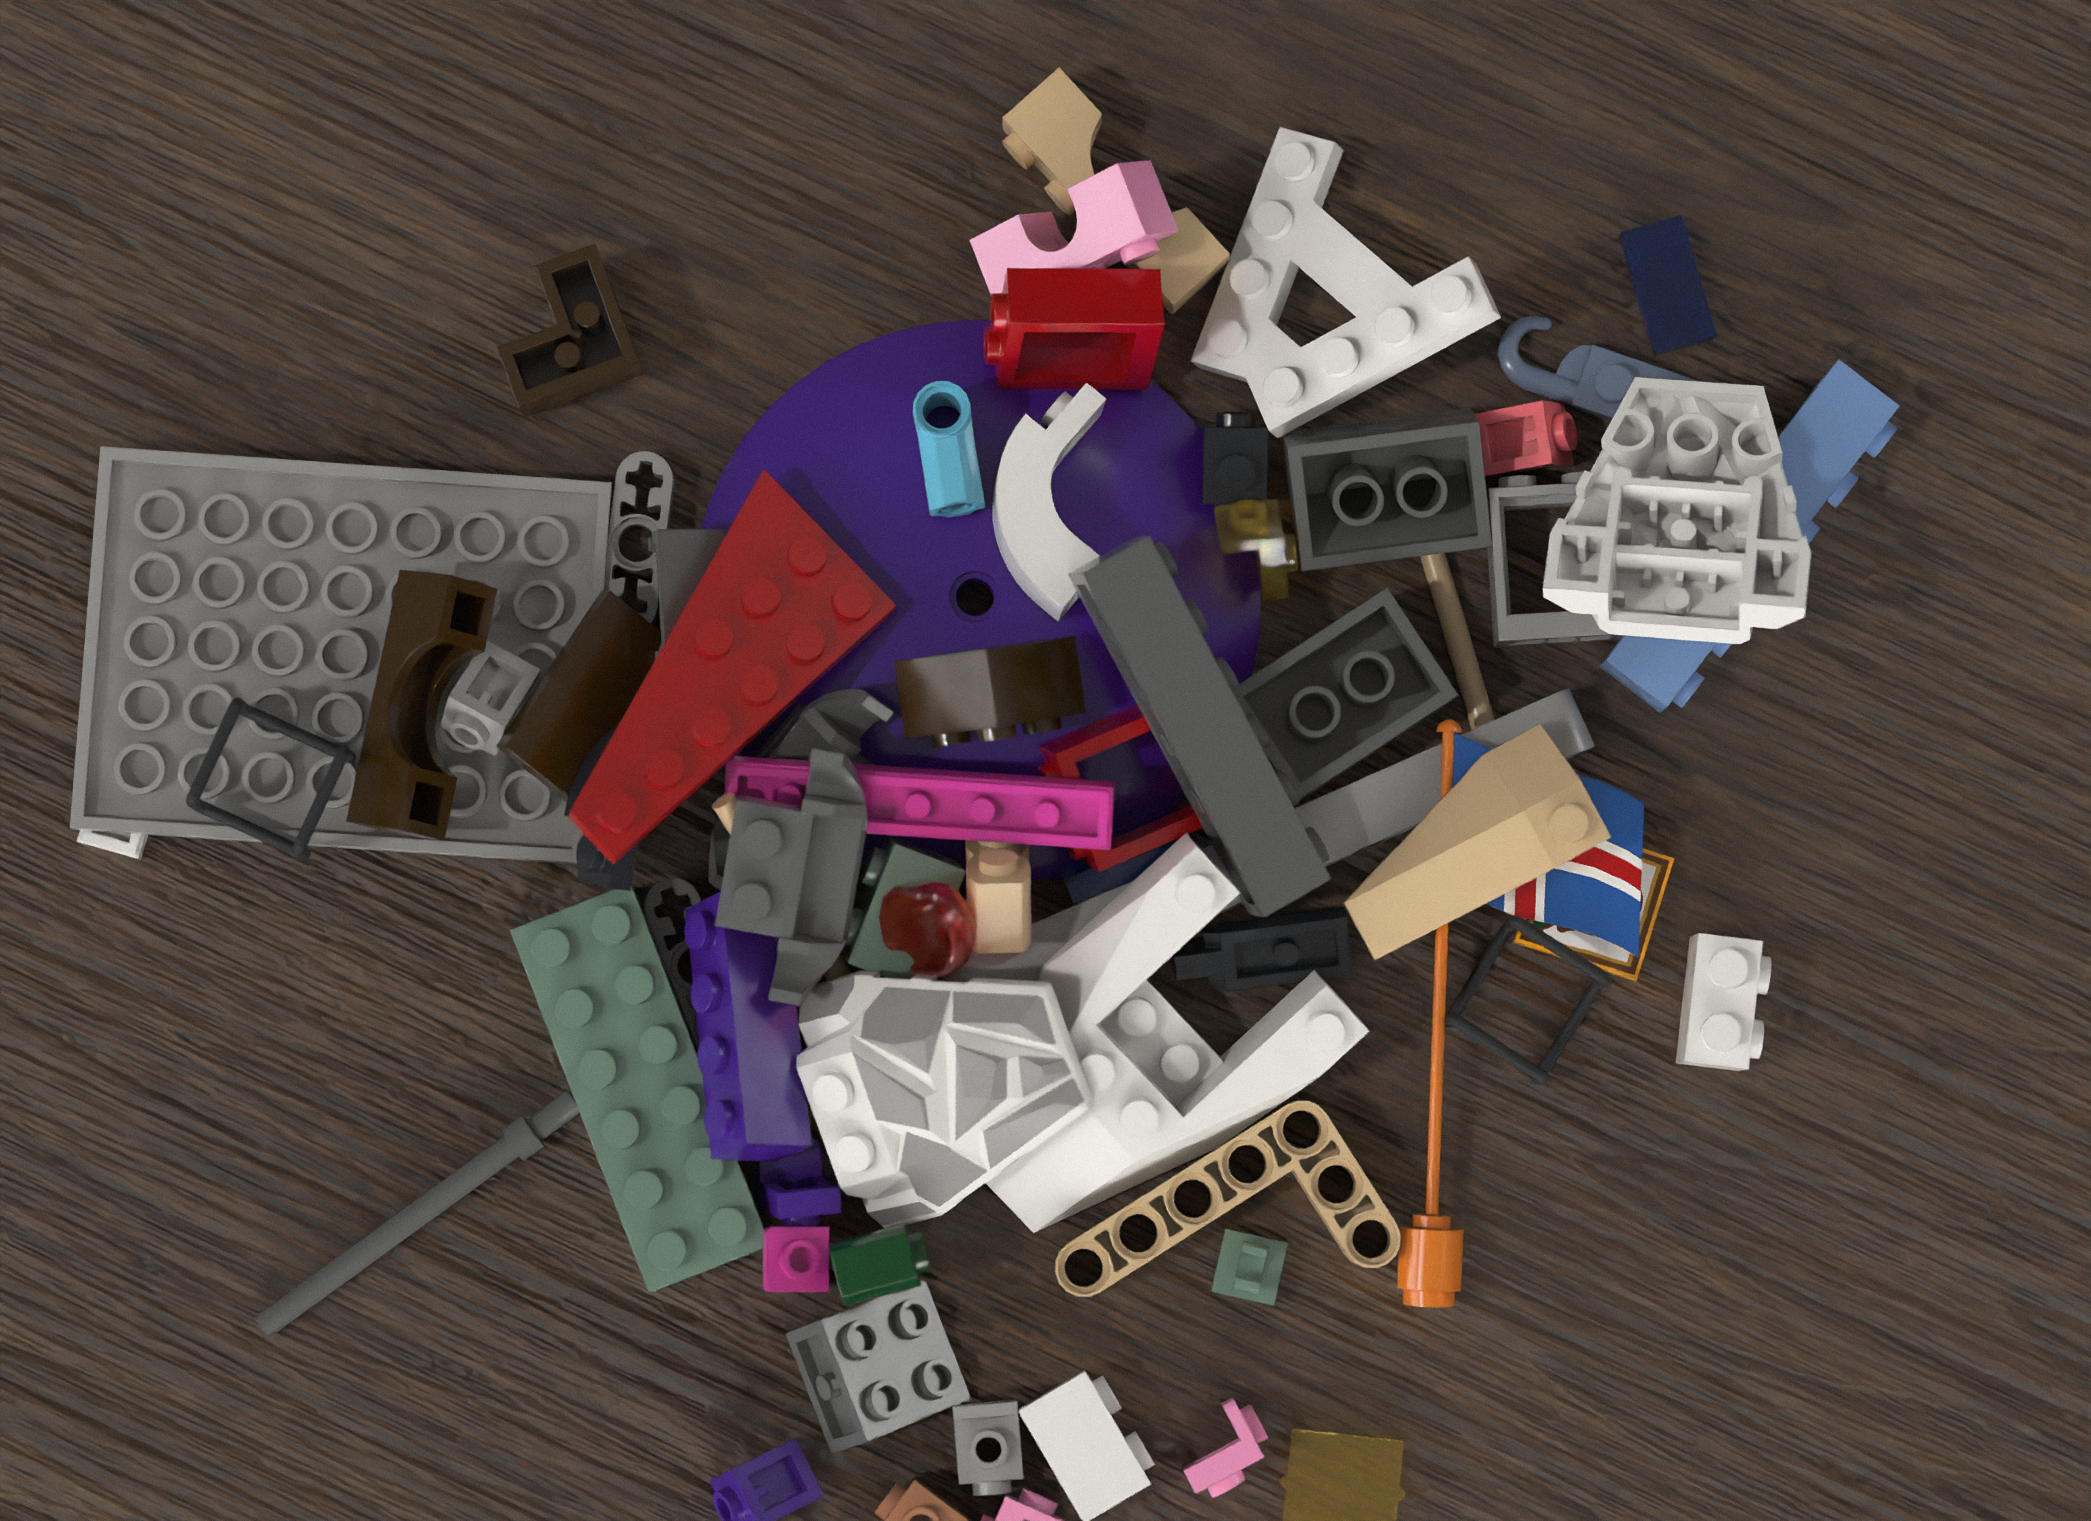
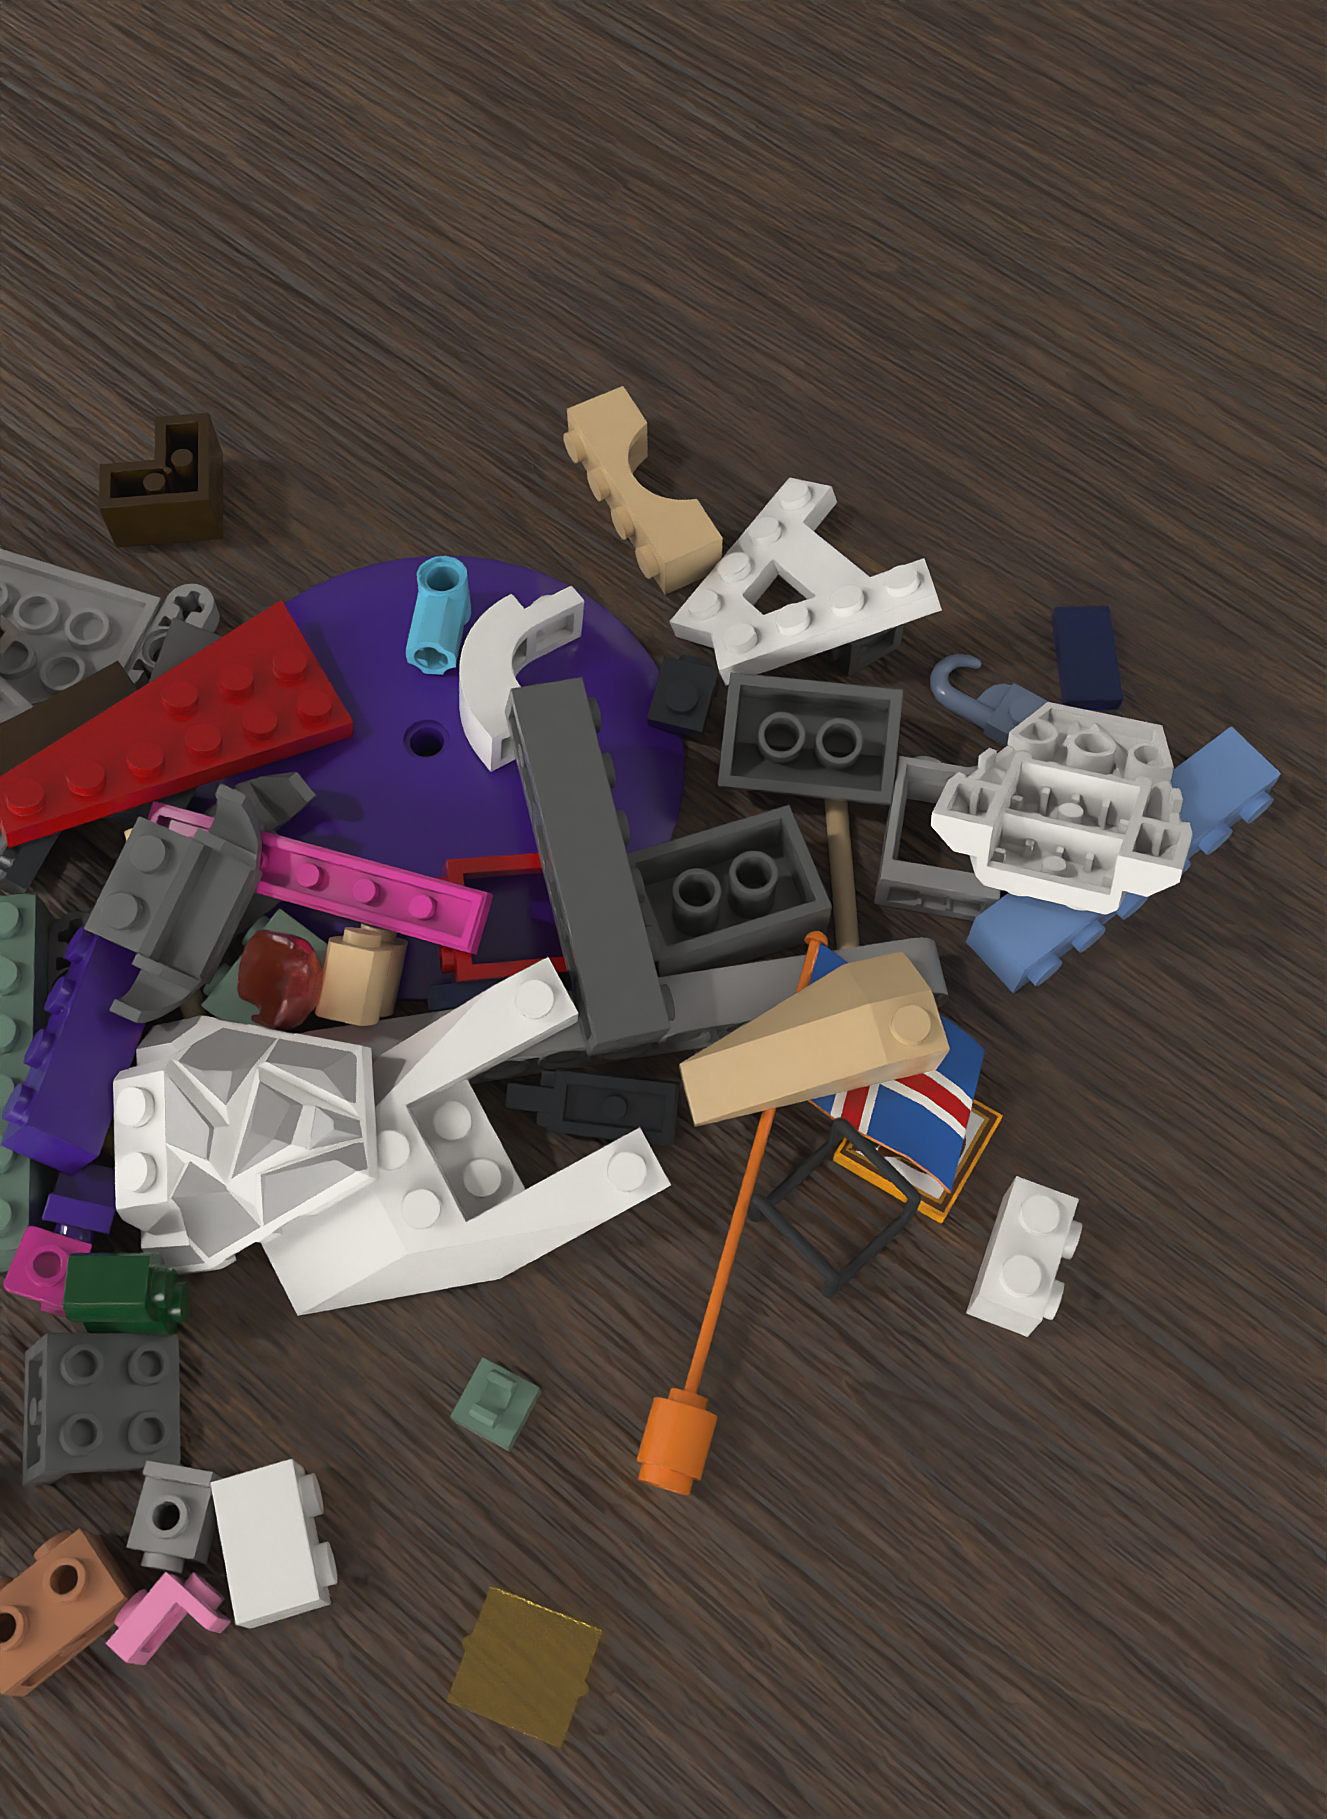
camera: 15 degrees right, 20 degrees down
(990, 691) = (409, 788): dark brown brick -> none
(1075, 328) = (584, 518): red window -> none
(1117, 219) = (633, 479): bright pink arch -> none
(1223, 1467) = (402, 1605): bright pink bracket -> none
(1228, 1192) = (492, 1324): tan beam -> none
(1258, 527) = (698, 768): clear yellow bracket -> none
(1526, 438) = (941, 732): coral bracket -> none

